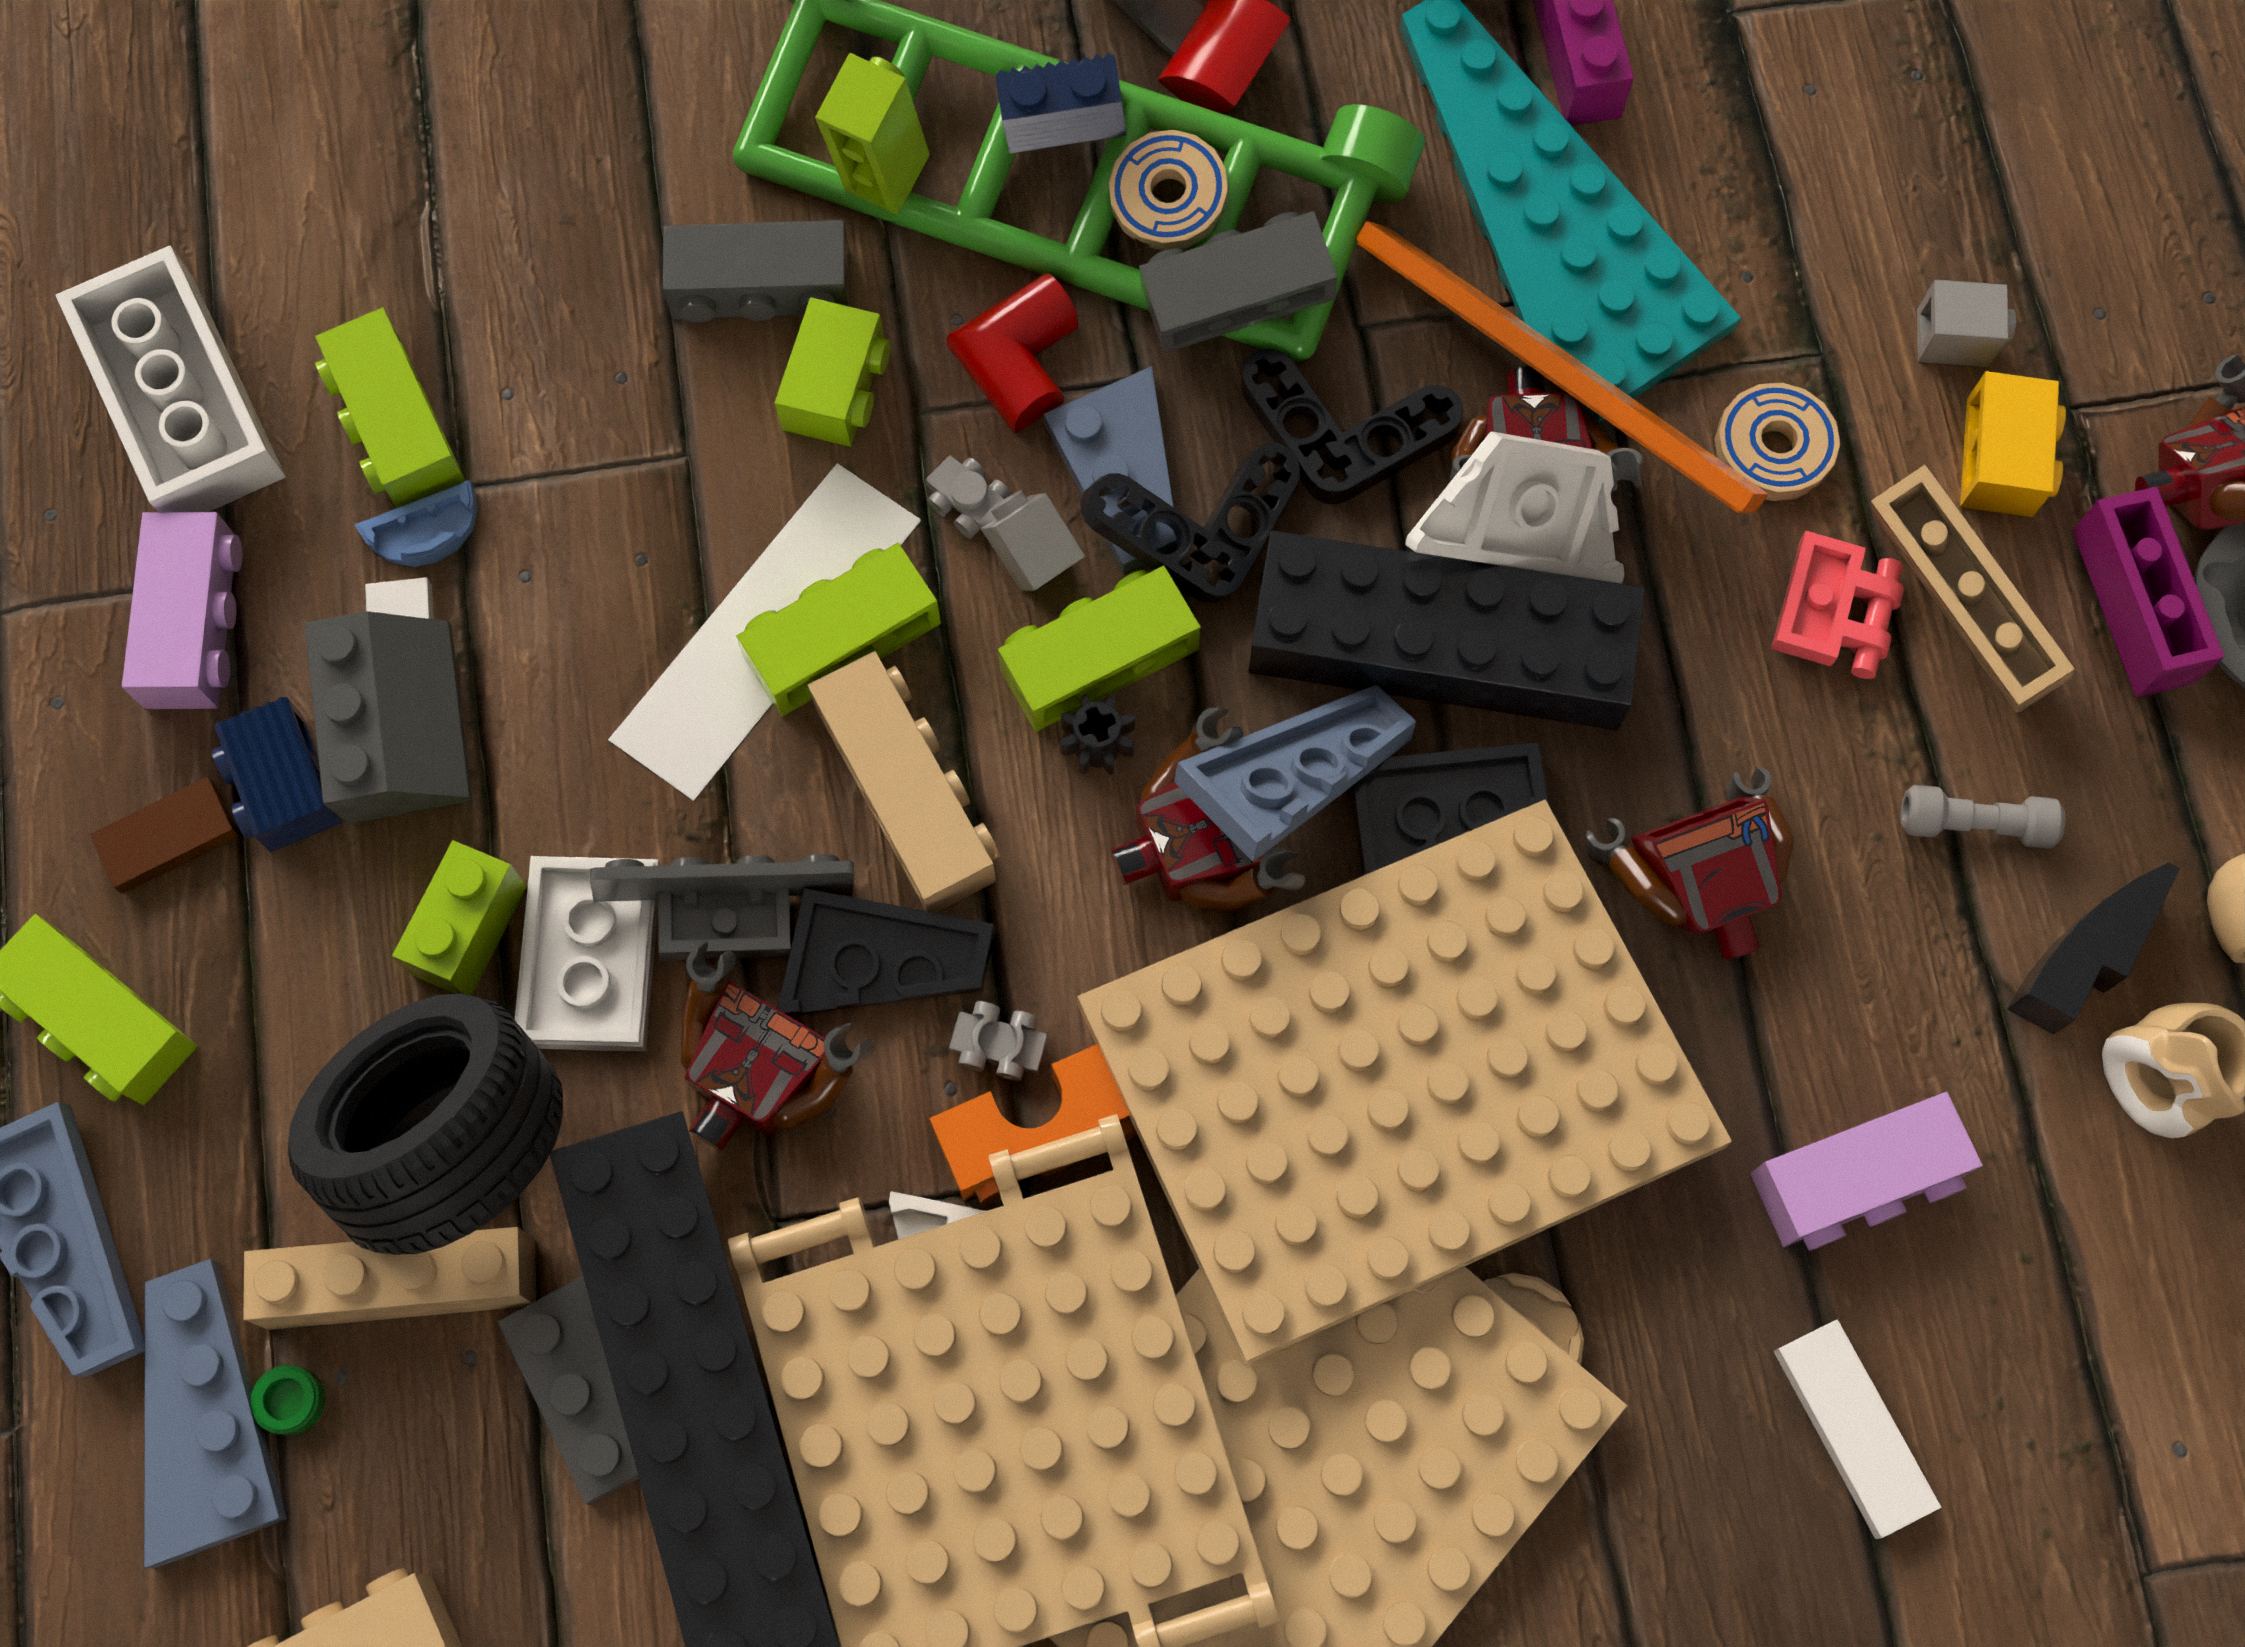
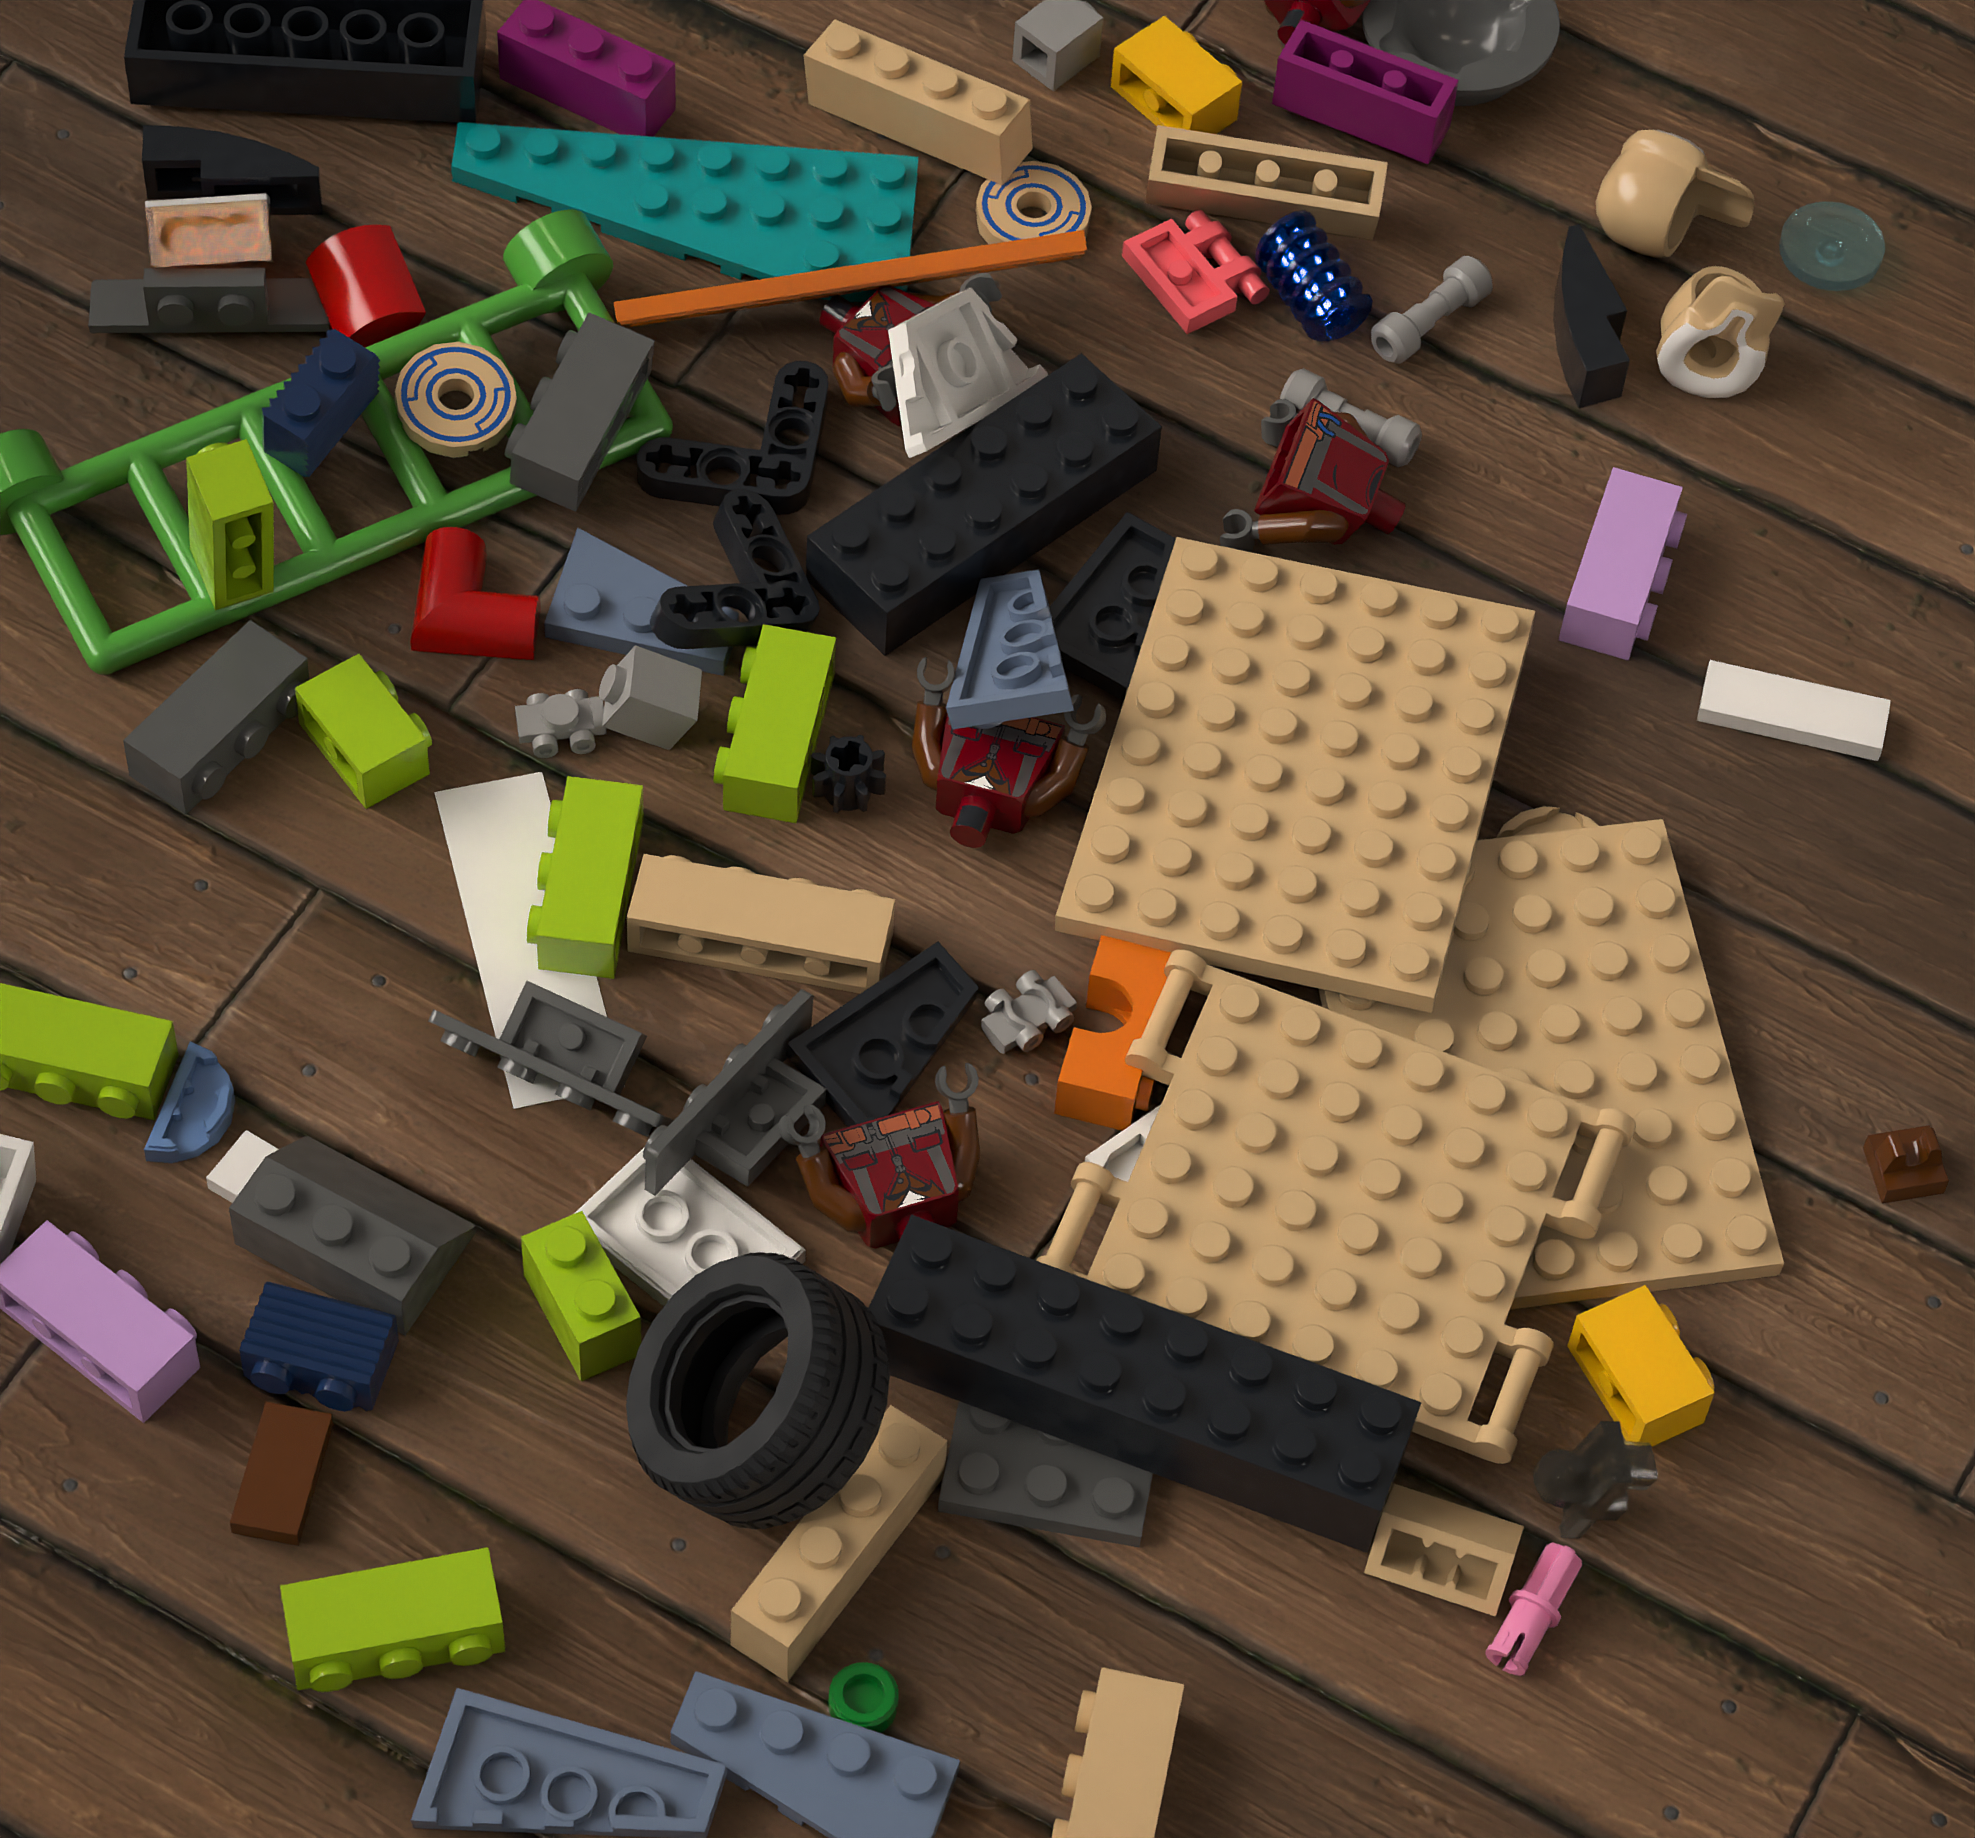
camera: 55 degrees left, 15 degrees down
(664, 738) = (567, 1044): none -> dark grey bracket
(1785, 276) = (918, 101): none -> tan brick
(1818, 888) = (1395, 435): none -> light grey piece
(1913, 699) = (1312, 277): none -> clear blue piece

